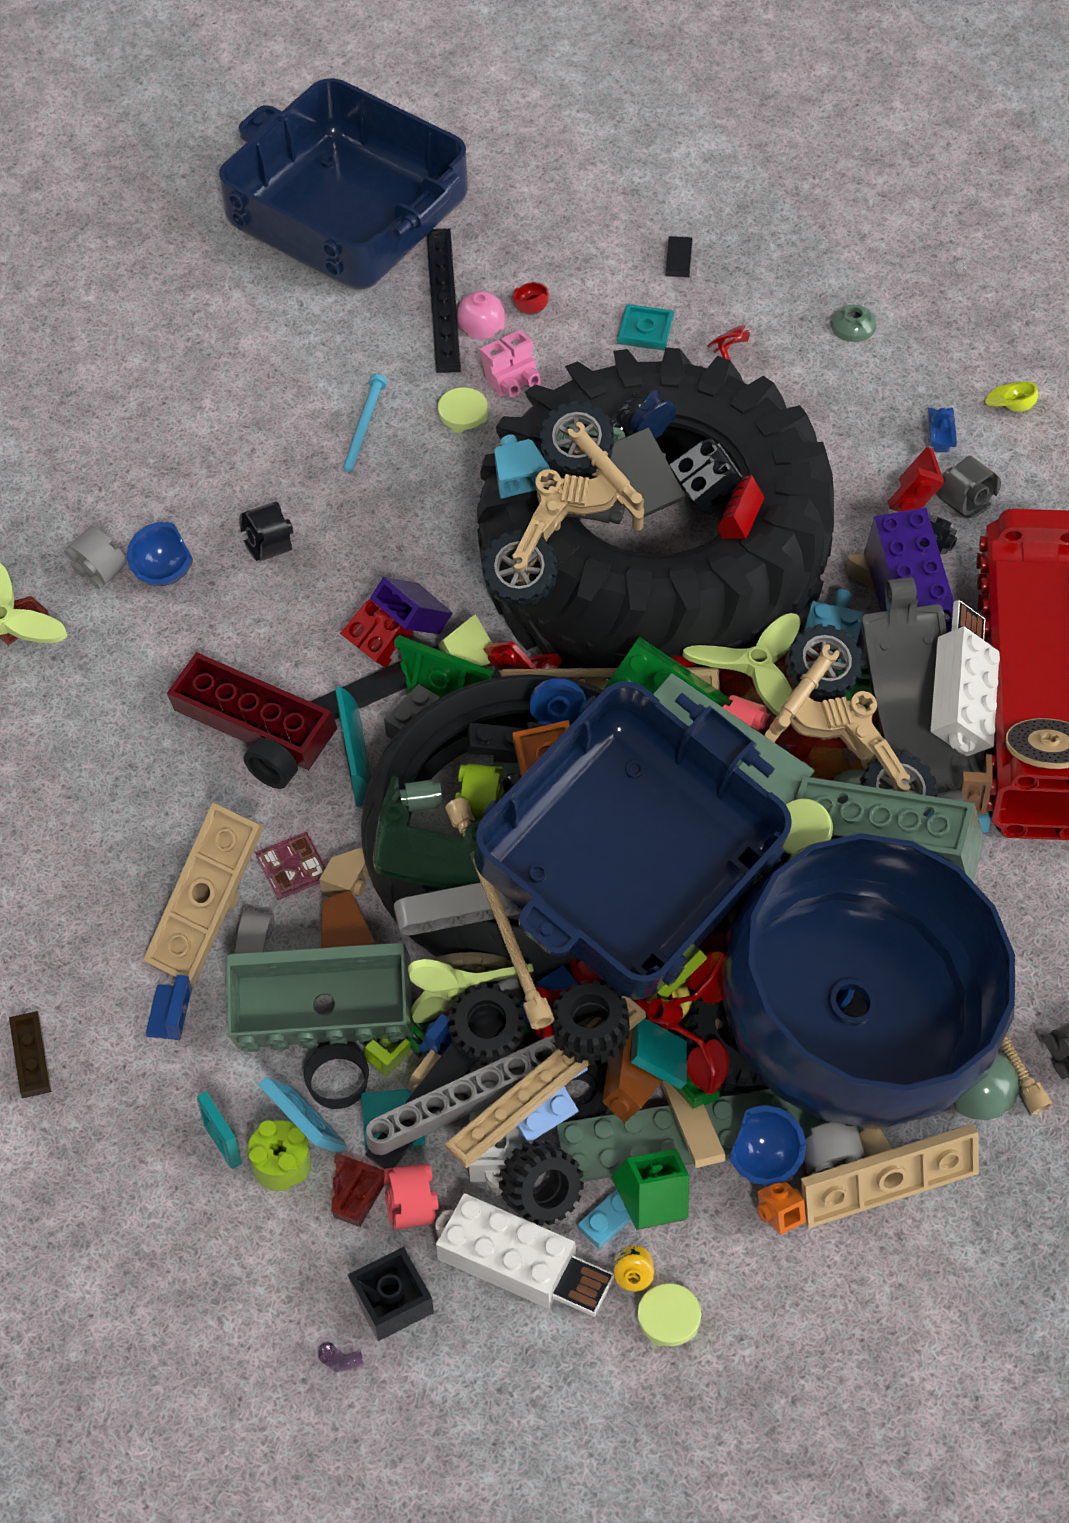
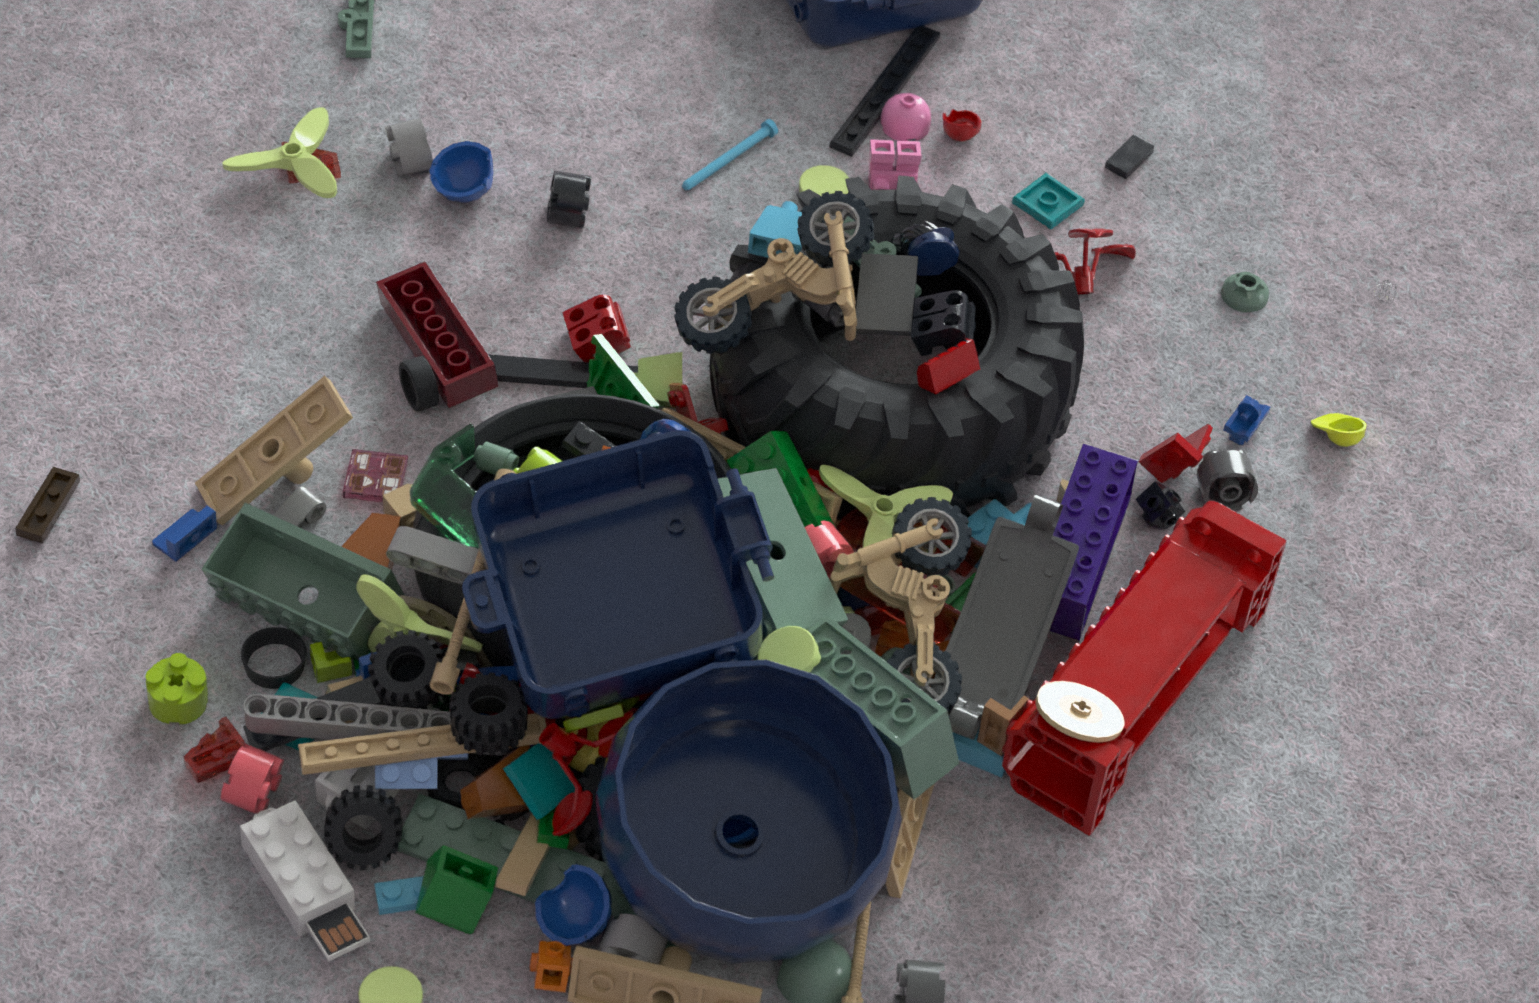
camera: 25 degrees right, 5 degrees down
(219, 1130) = (141, 641): teal tile -> none
(303, 1115) = (217, 668): medium azure tile -> none
(337, 1360) = (97, 874): clear purple arm -> none
(354, 744) = (508, 389): teal slope -> none
(391, 1294) = (175, 844): black slope -> none
(411, 605) = (638, 319): dark purple brick -> none
(633, 1268) = (388, 941): yellow head -> none
(965, 684) = (1052, 625): white piece -> none

